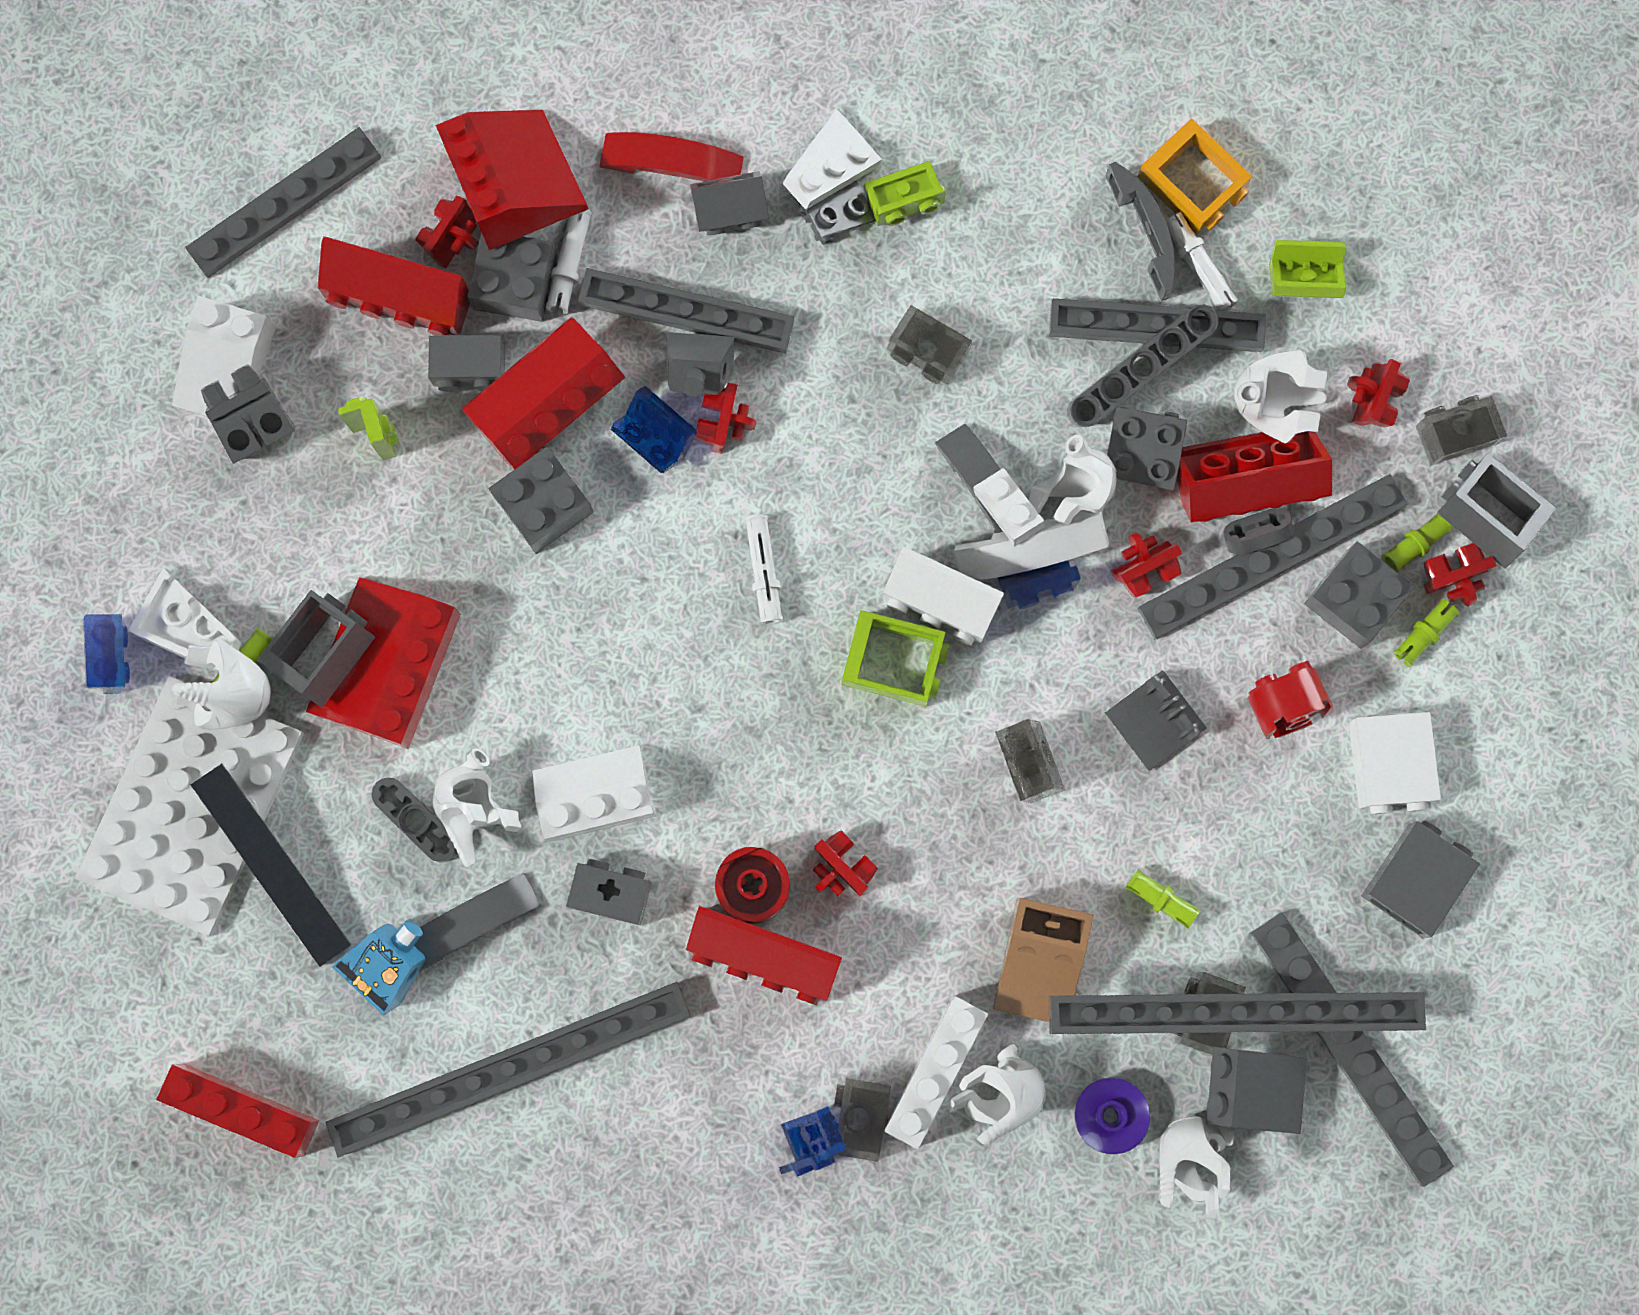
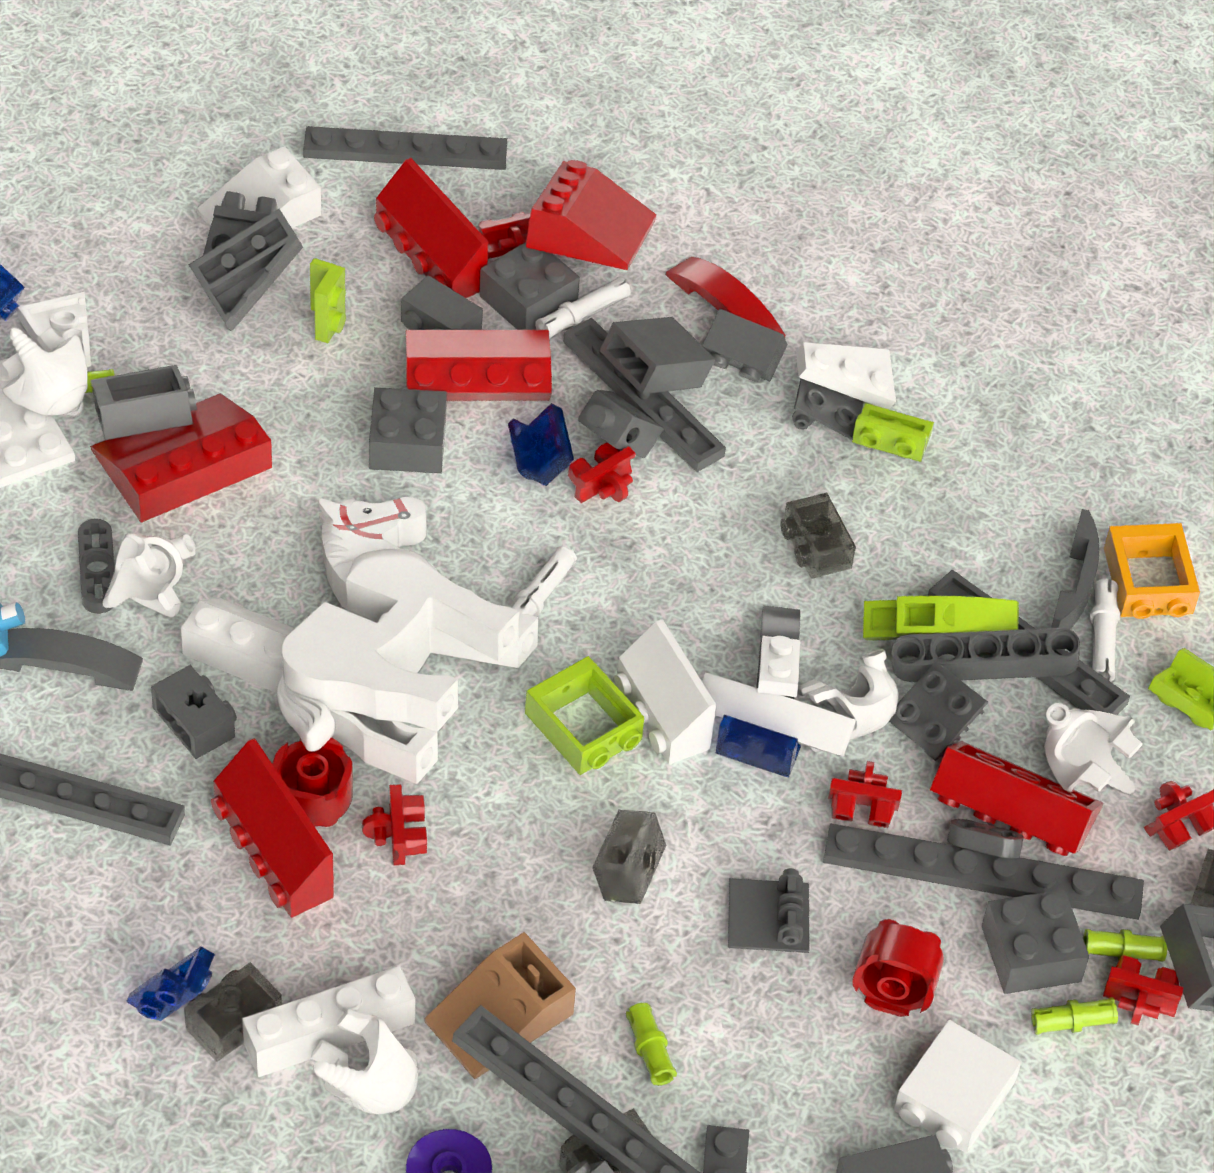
camera: 35 degrees right, 30 degrees down
(284, 454) = (246, 266): none -> dark grey wedge
(674, 270) = (657, 355): none -> dark grey brick
(698, 779) = (359, 668): none -> white animal
(1087, 360) = (937, 615): none -> lime slope

